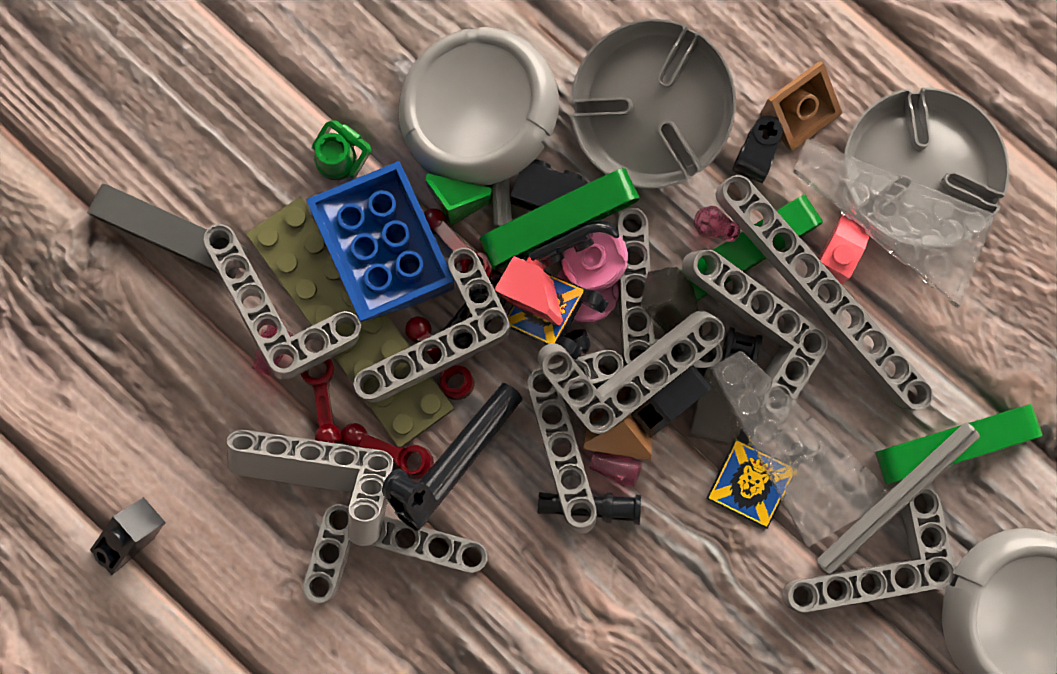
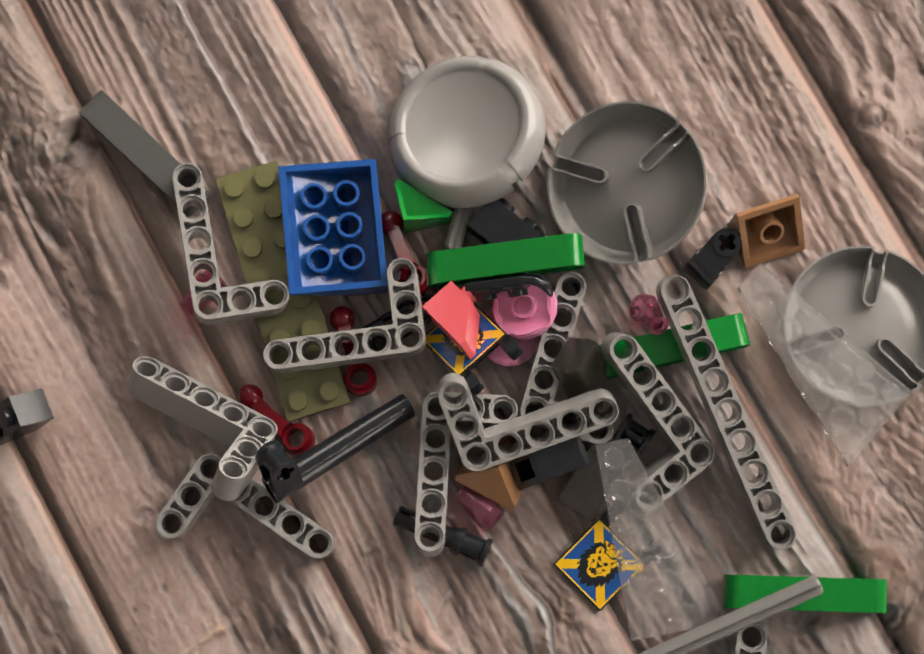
camera: 20 degrees right, 0 degrees up
(327, 429) = (227, 383): dark red piece -> none
(334, 152) = (321, 132): green piece -> none
(581, 338) = (486, 377): black hinge -> none
(844, 248) = (759, 377): coral slope -> none

